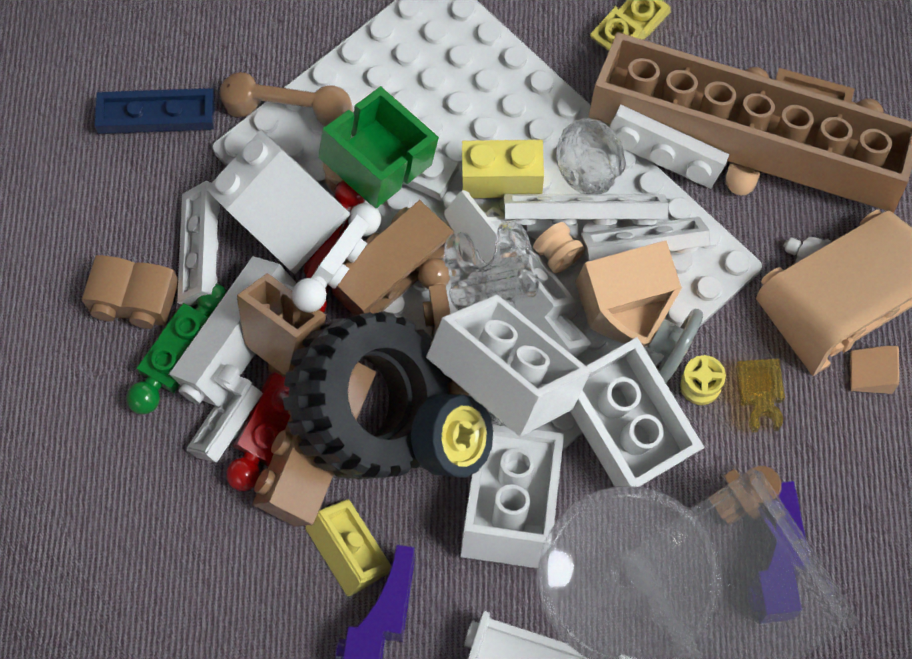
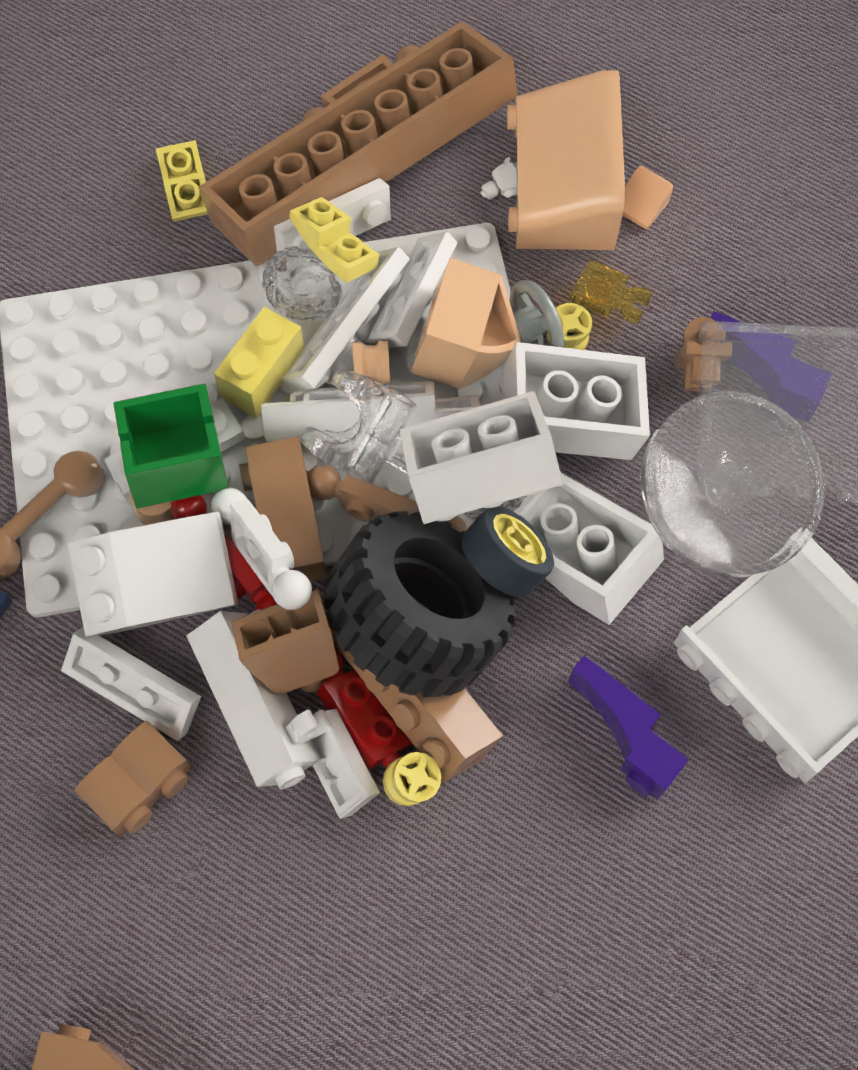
camera: 60 degrees left, 0 degrees up
(167, 350) = (229, 773): green plate -> none
(242, 478) = (422, 779): none -> light yellow wheel
(348, 547) = (537, 722): light yellow slope -> none
(636, 151) = (329, 237): none -> light yellow slope
(741, 179) = (403, 188): light nougat hinge -> none

